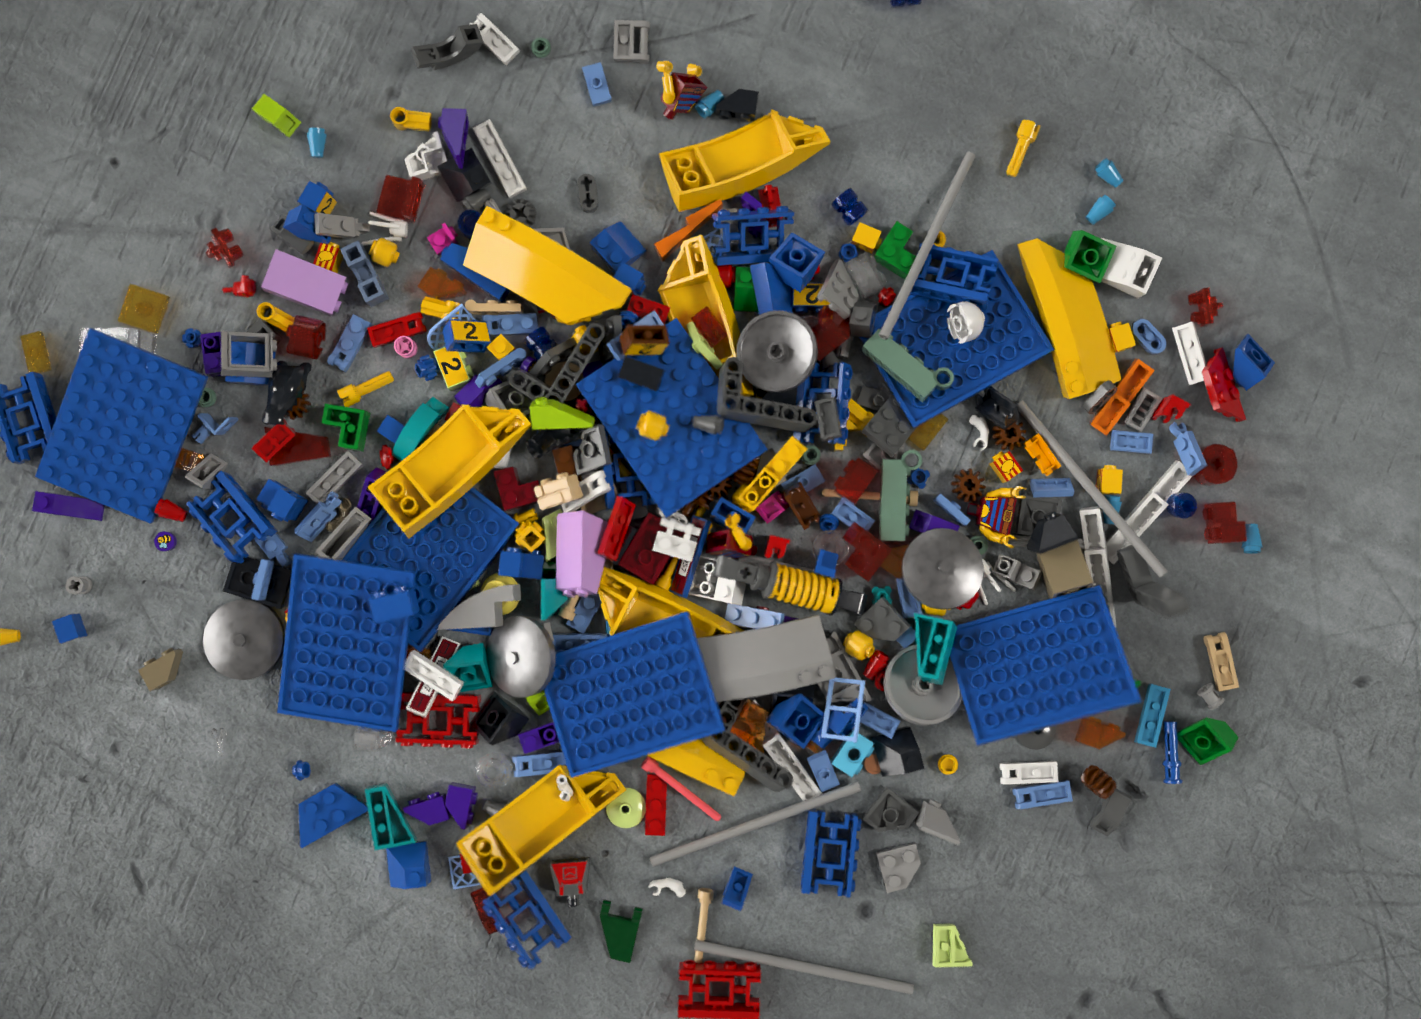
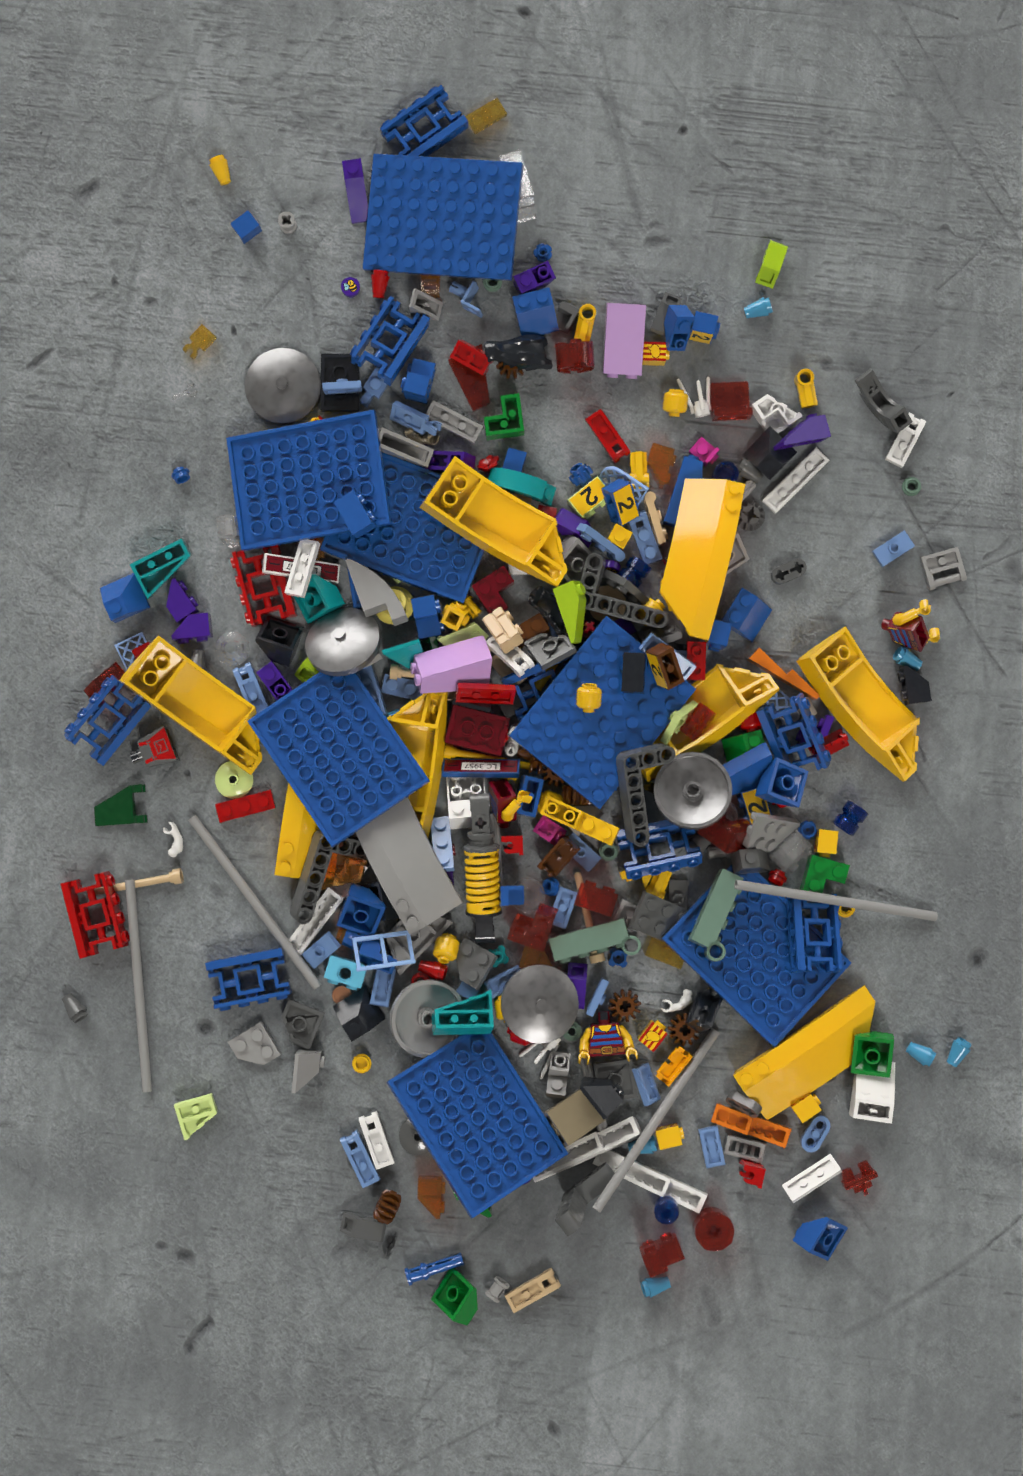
camera: 70 degrees right, 0 degrees up
(143, 308) = (556, 200): clear yellow plate -> none
(161, 671) = (233, 322): dark tan slope -> none
(170, 708) = (201, 339): none -> clear yellow plate
(220, 239) = (640, 249): clear red hips -> none
(229, 369) = (523, 298): light grey window -> none
(244, 288) = (603, 285): red piece -> none
(327, 812) = (149, 510): blue wing -> none
(339, 226) = (686, 355): light grey hinge -> none
(349, 343) = (582, 396): medium blue plate -> none
(354, 393) = (535, 414): yellow piece -> none
(364, 270) = (646, 395): sand blue arch -> none
(402, 345) = (592, 446): bright pink wheel -> none
(564, 787) = (236, 717): white arm -> none
(628, 318) = (681, 645): blue plate -> none
(651, 765) = (280, 790): coral piece -> none
(674, 545) = (486, 751): white plate -> none
(710, 424) = (606, 749): dark grey cone -> none
(737, 888) = (191, 903): blue slope -> none
(828, 419) = (645, 856): dark grey plate -> none
(965, 321) = (774, 956): white cylinder -> none
(1026, 135) = (970, 963): yellow piece -> none
(1152, 715) = (463, 1240): dark azure plate -> none
(1188, 449) = (720, 1200): medium blue plate -> none
(1221, 386) = (789, 1215): red wing -> none

